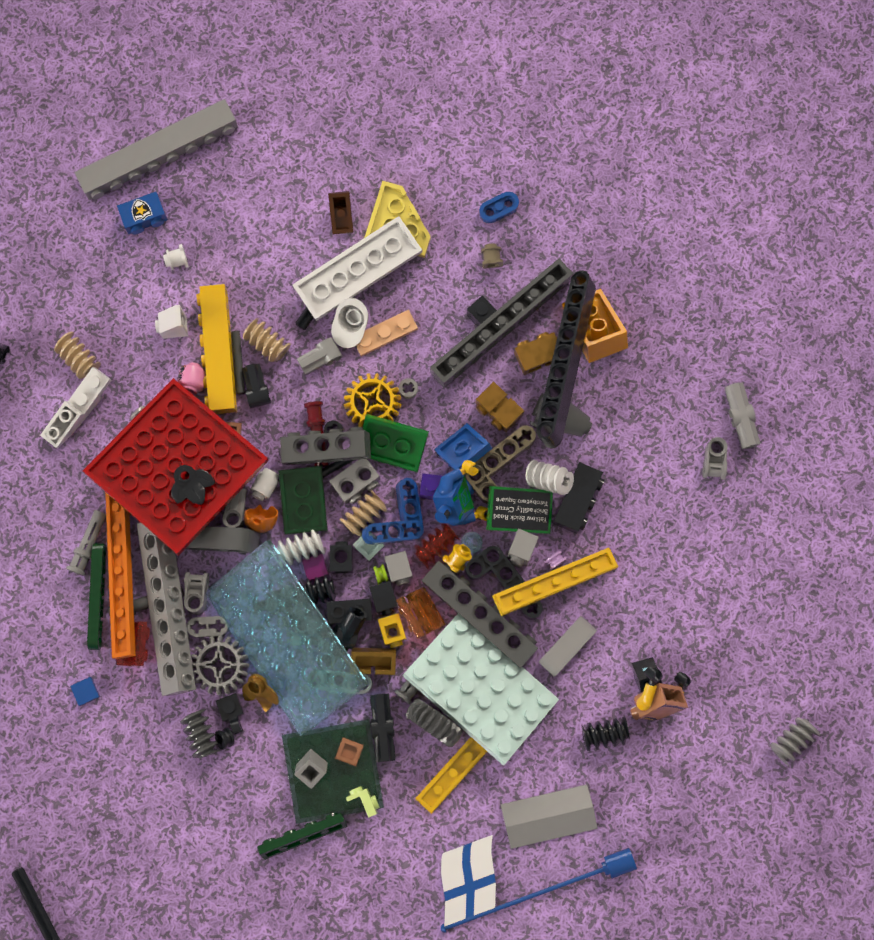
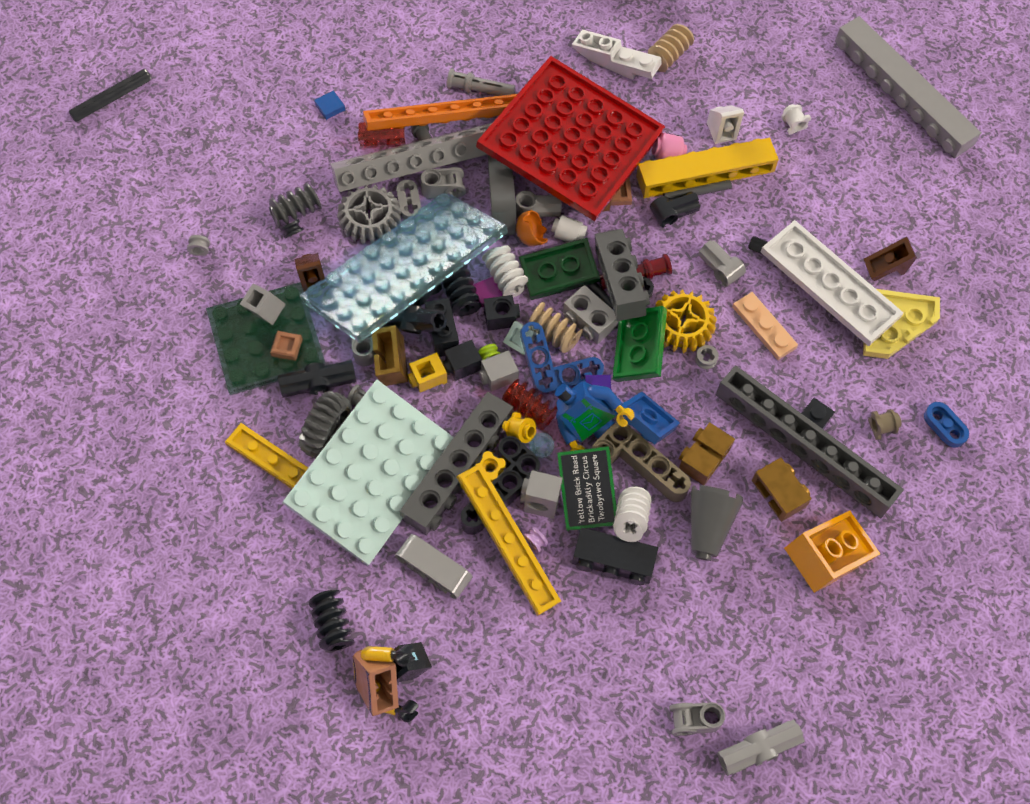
camera: 75 degrees right, 15 degrees down
(96, 603) = (415, 97): dark green beam -> none
(142, 213) = (834, 82): blue brick -> none
(193, 487) = (550, 146): black plate -> none
(228, 827) = (198, 245): none -> light grey bush
(230, 709) = (322, 232): black plate -> none
(258, 688) = (347, 247): pearl gold plate -> none
(264, 341) = (727, 208): tan piece -> none
(274, 724) = (309, 270): none -> reddish brown slope
(310, 832) = (190, 311): dark green plate -> none
(349, 323) = (769, 284): white piece -> none
(369, 802) = (233, 366): yellowish green bracket -> none
(425, 610) = (454, 404): clear orange plate -> none
(471, 881) = (146, 497): flag -> none
(489, 579) = (491, 462): none -> yellow brick
(549, 816) = (229, 572): light grey slope -> none
(566, 360) = (780, 506): black beam -> none

